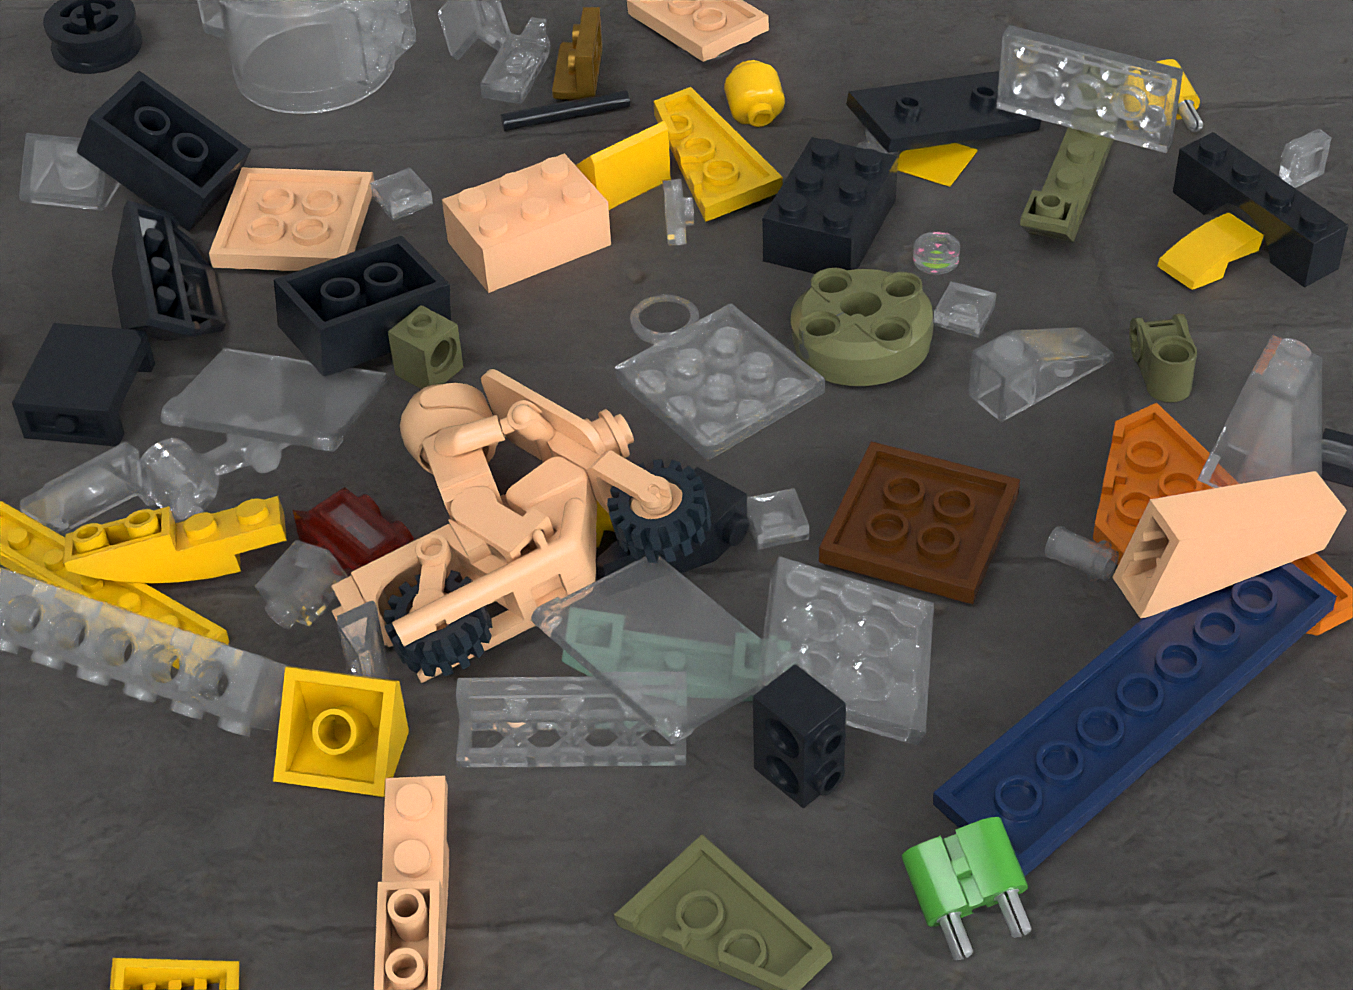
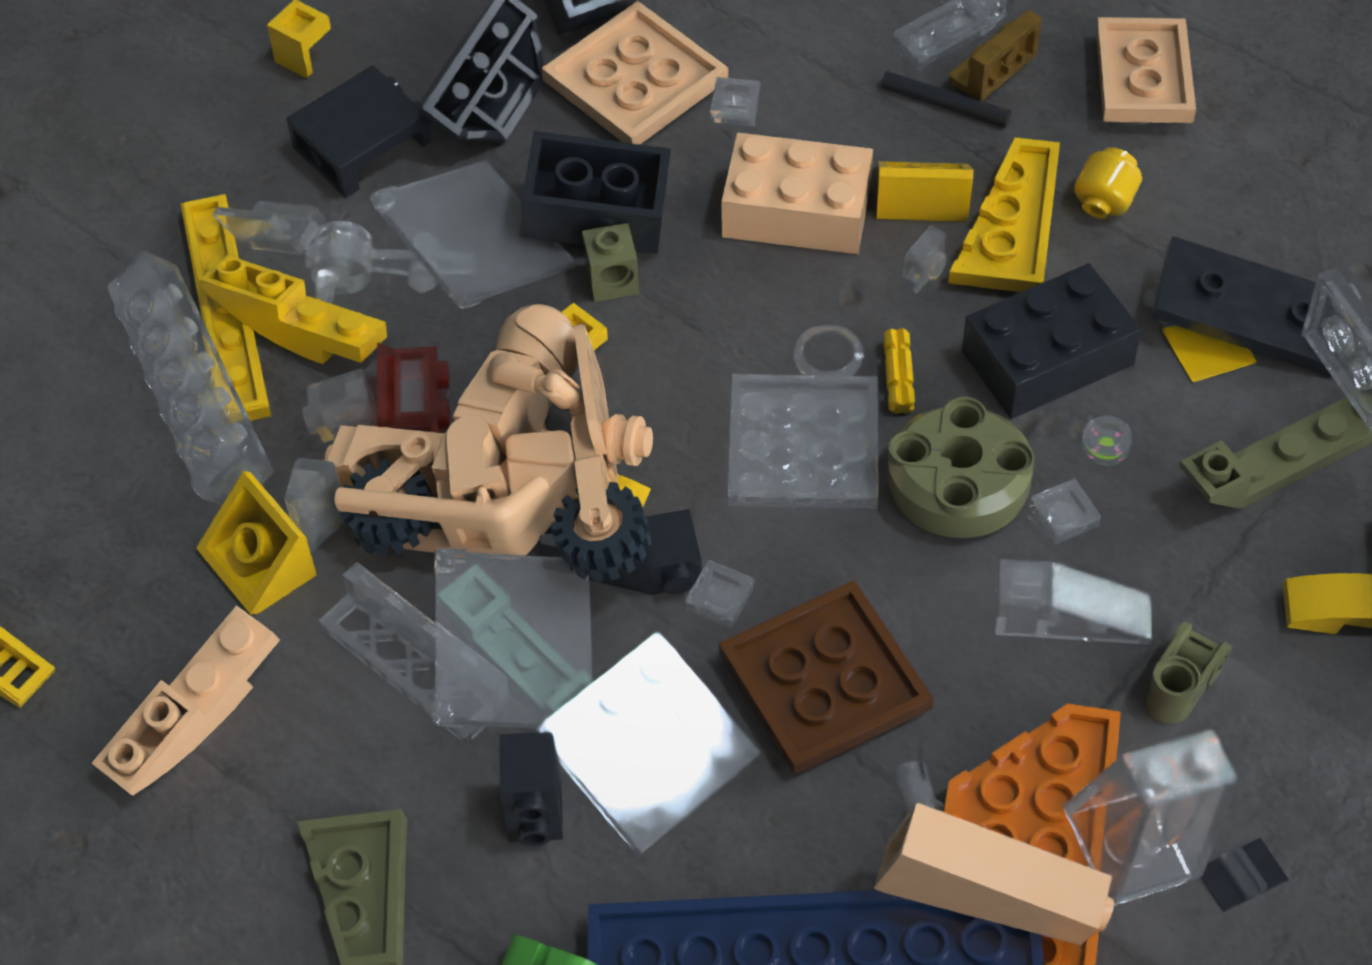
camera: 40 degrees right, 10 degrees up
(733, 291) = (899, 371): none -> yellow axle

